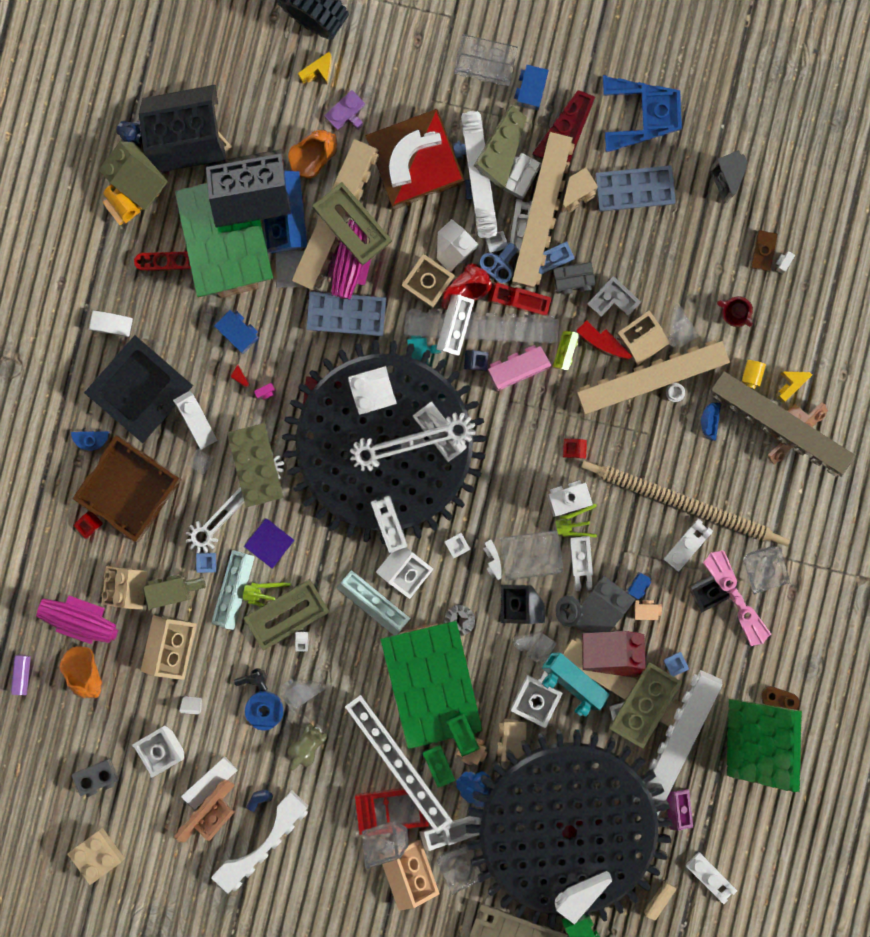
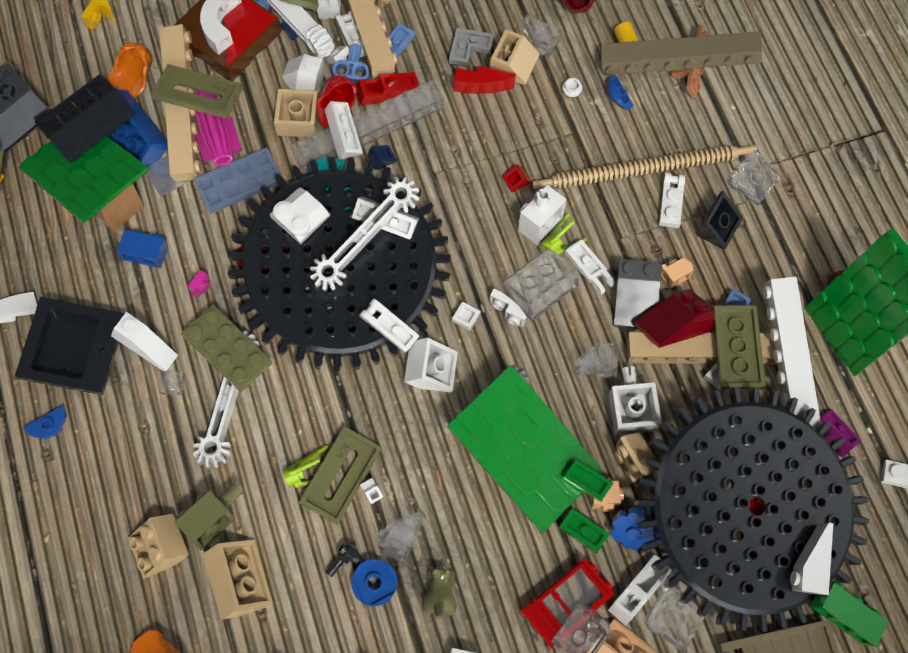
camera: 30 degrees left, 20 degrees down
(77, 619) = (122, 606): dark pink plate -> none
(88, 524) = (87, 507): red slope -> none
(127, 488) = (109, 447): reddish brown tile -> none
(171, 261) = (43, 221): red beam -> none
(191, 705) = (295, 625): white slope -> none
(206, 562) = (230, 472): medium blue plate -> none
(232, 590) = (272, 484): light aqua slope -> none
(239, 376) = (168, 285): red slope -> none
(269, 543) = (284, 420): dark purple sticker -> none
(345, 111) = (144, 27): medium lavender plate -> none
(373, 603) = (415, 415): light aqua slope -> none
(399, 764) = (546, 546): white brick -> none
(518, 367) = (424, 138): bright pink slope -> none
(521, 605) = (560, 332): black slope -> none
(565, 350) = (455, 104): lime plate -> none
(565, 617) = (599, 309): dark grey gear -> none
(574, 277) = (424, 46): dark grey brick -> none
(574, 680) = (659, 367): teal brick -> none
(638, 585) = (654, 250): blue piece -> none
(653, 377) = (543, 86): tan brick -> none
(659, 900) = (884, 530): tan slope -> none
(721, 570) = (718, 191): bright pink piece -> none
(796, 380) = (662, 23): yellow slope -> none

